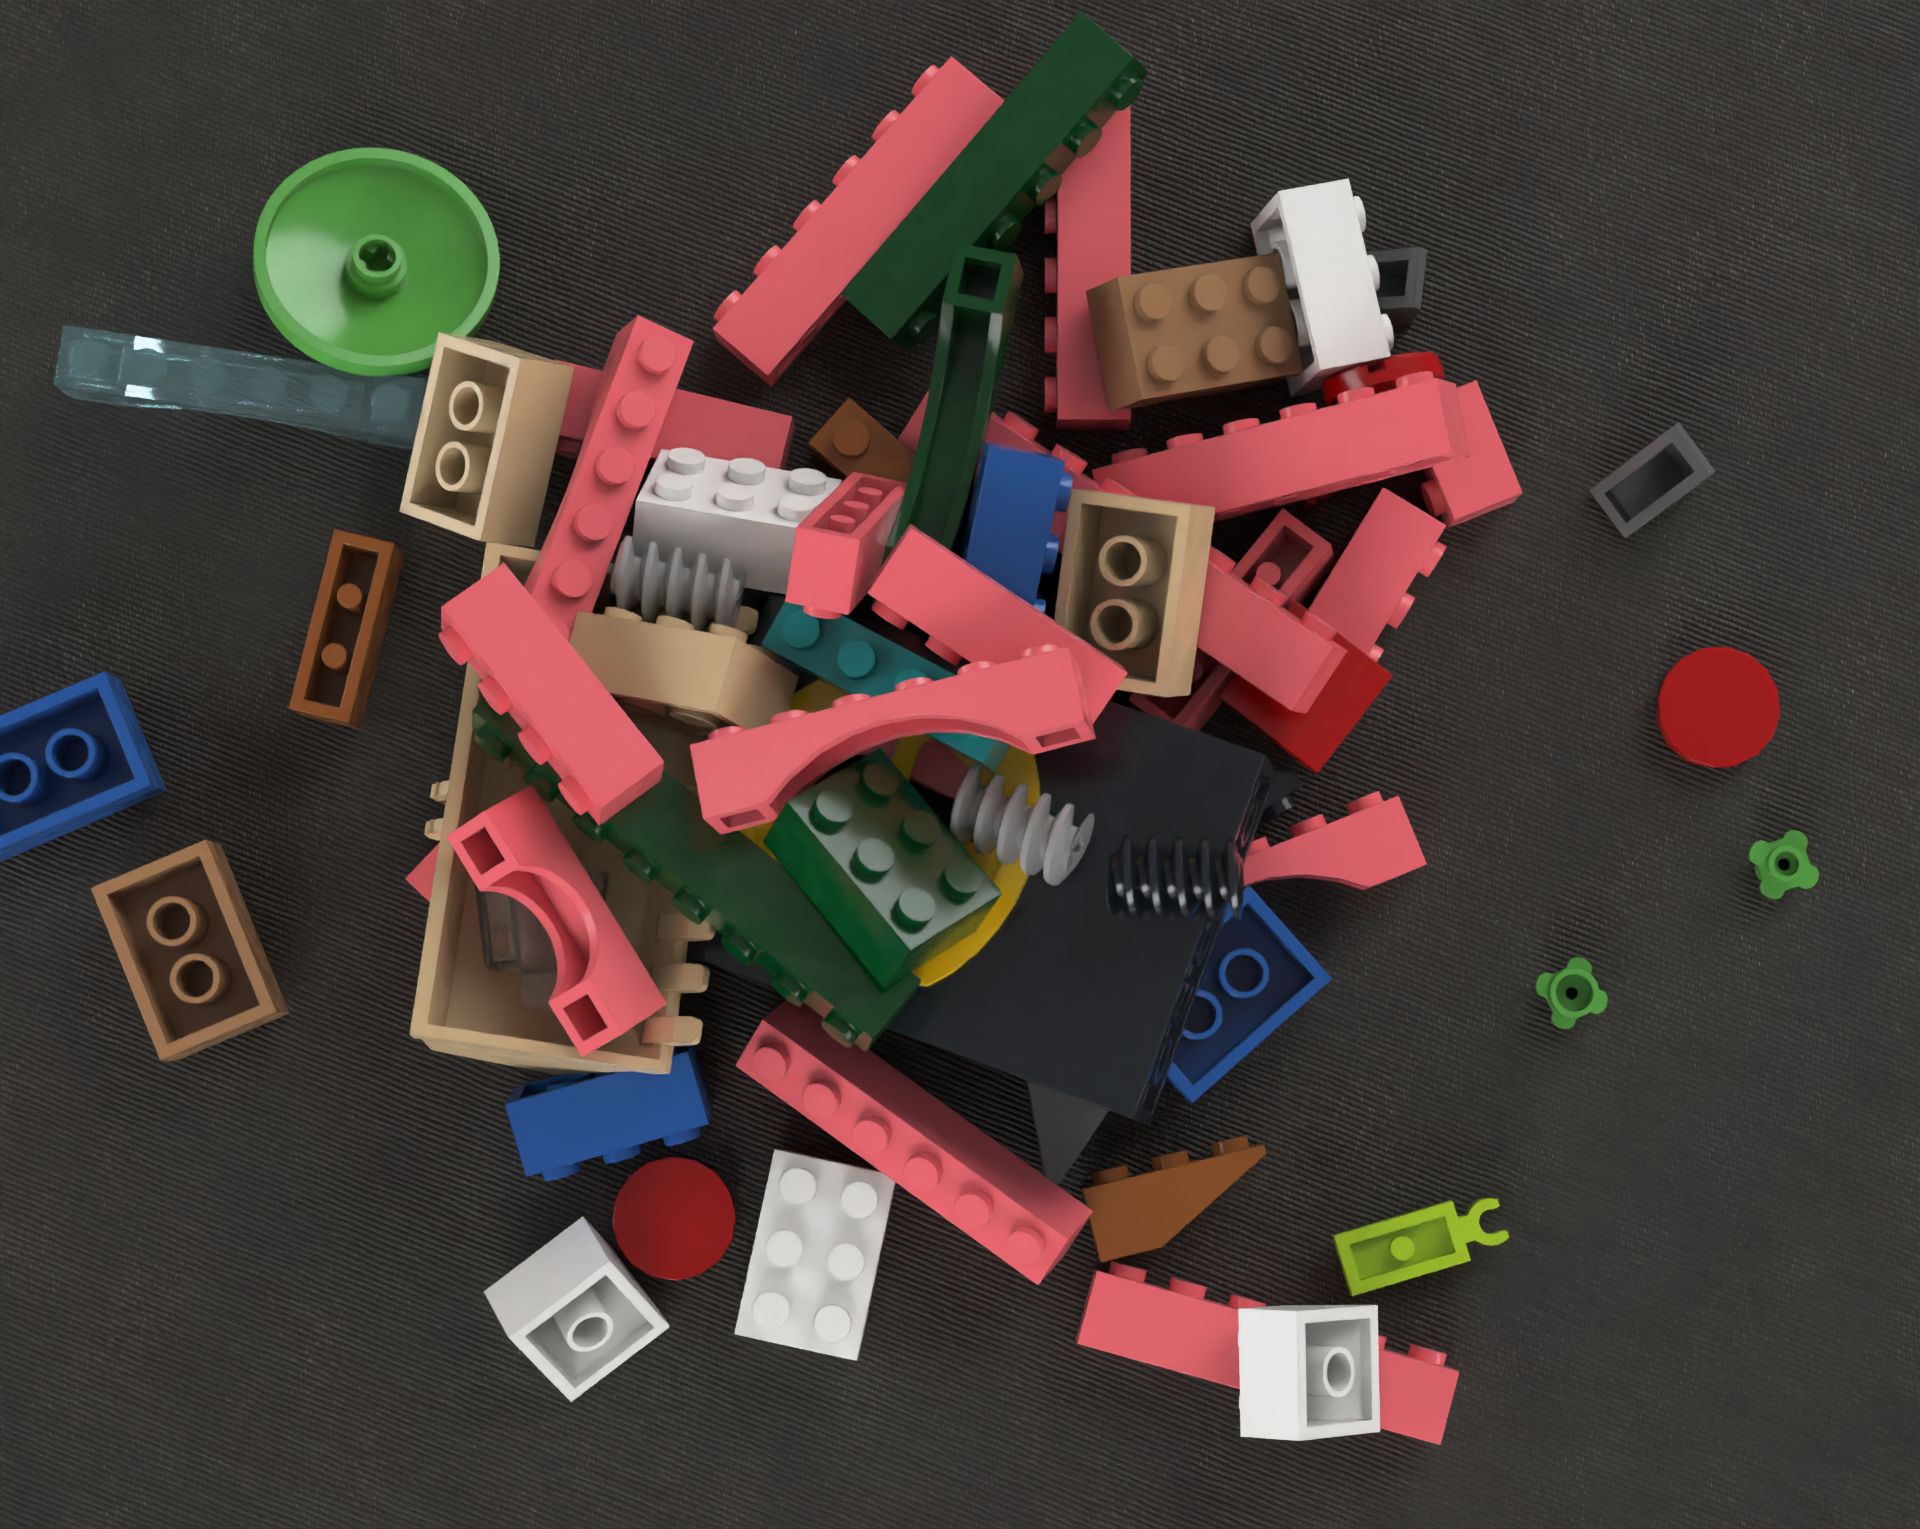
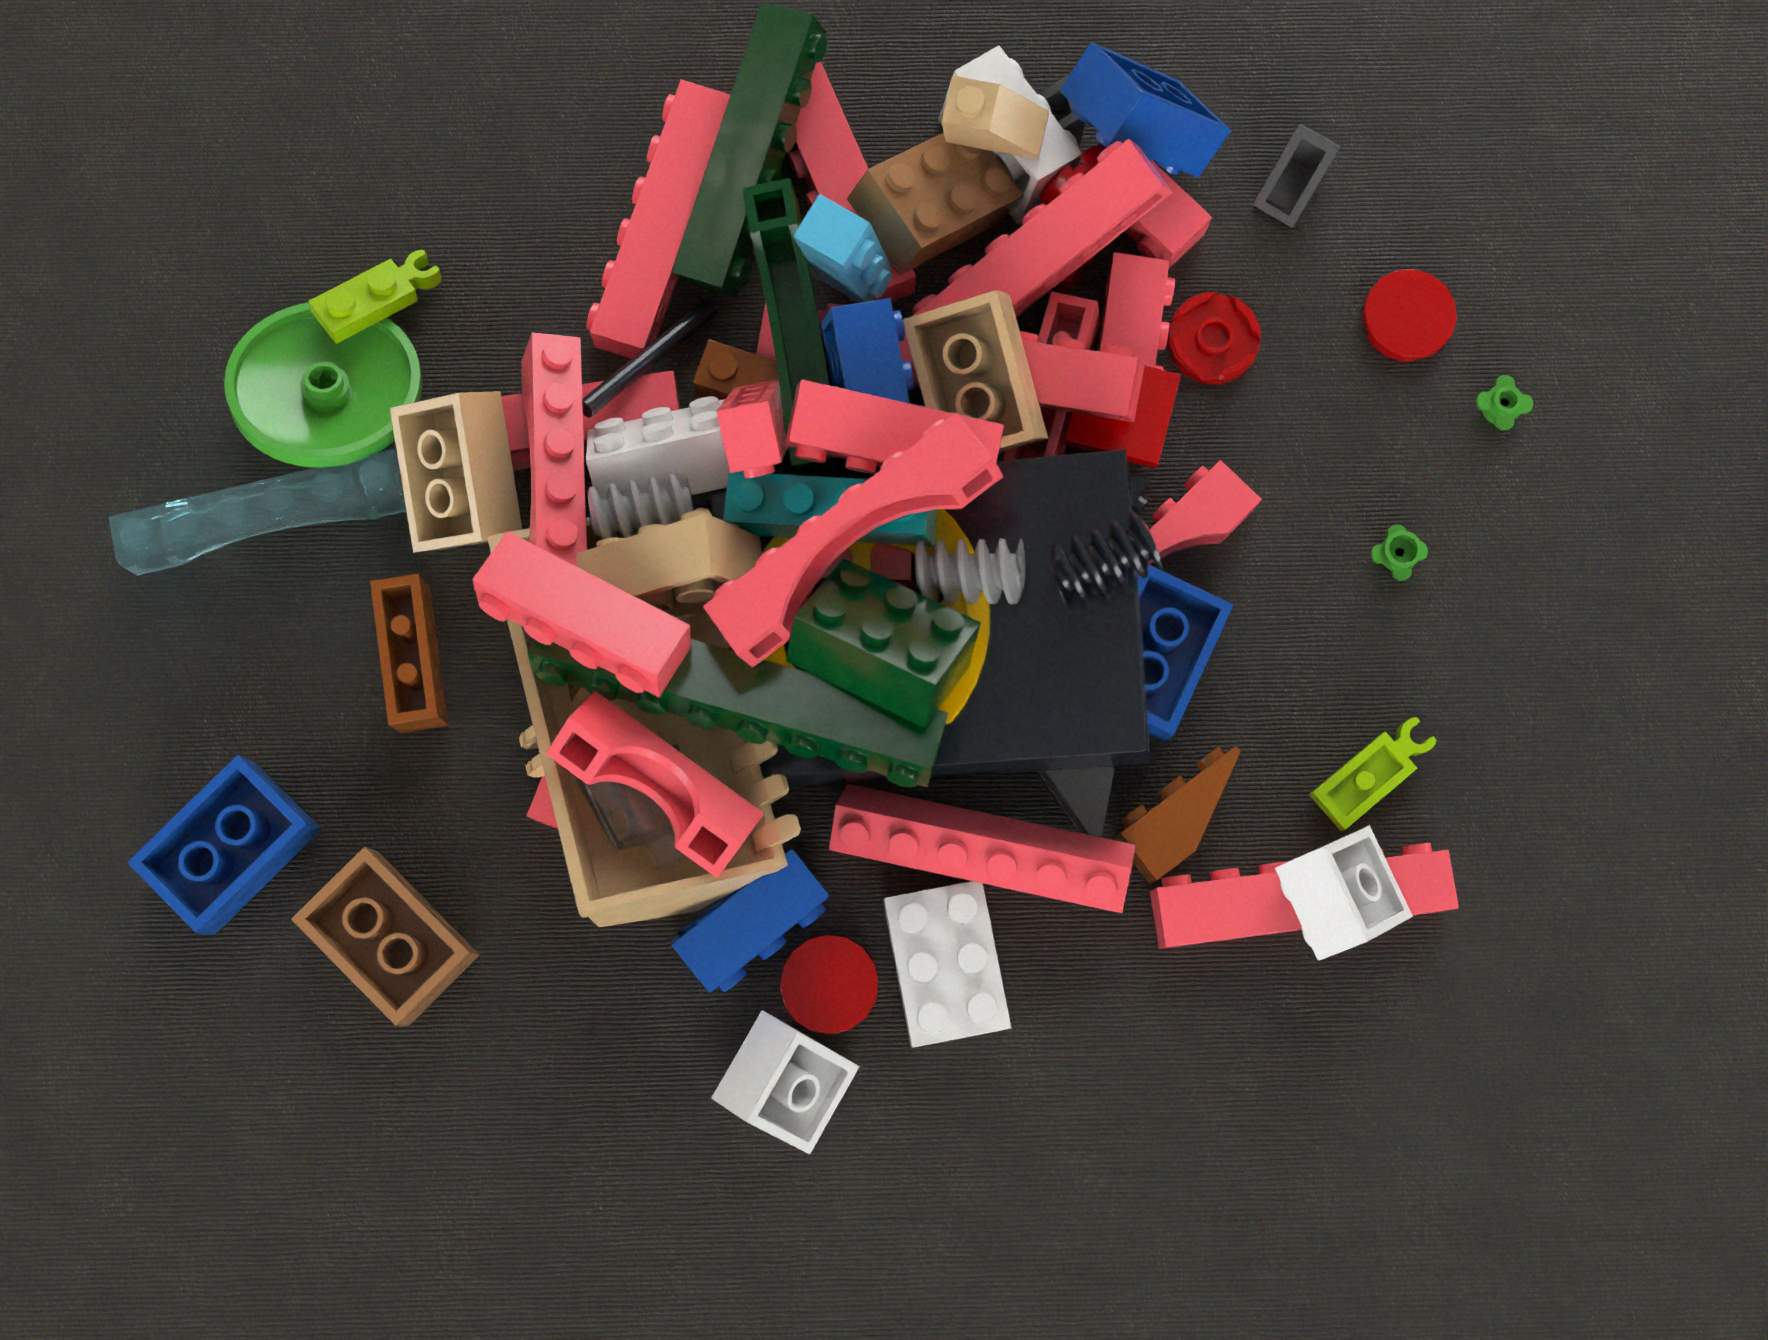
camera: 30 degrees left, 5 degrees down
(476, 174) = (373, 296): none -> lime plate
(768, 389) = (647, 358): none -> black bar
(1045, 370) = (844, 251): none -> medium azure brick
(1295, 277) = (993, 118): none -> tan slope
(1465, 637) = (1213, 338): none -> red tile
(1490, 333) = (1146, 107): none -> blue brick

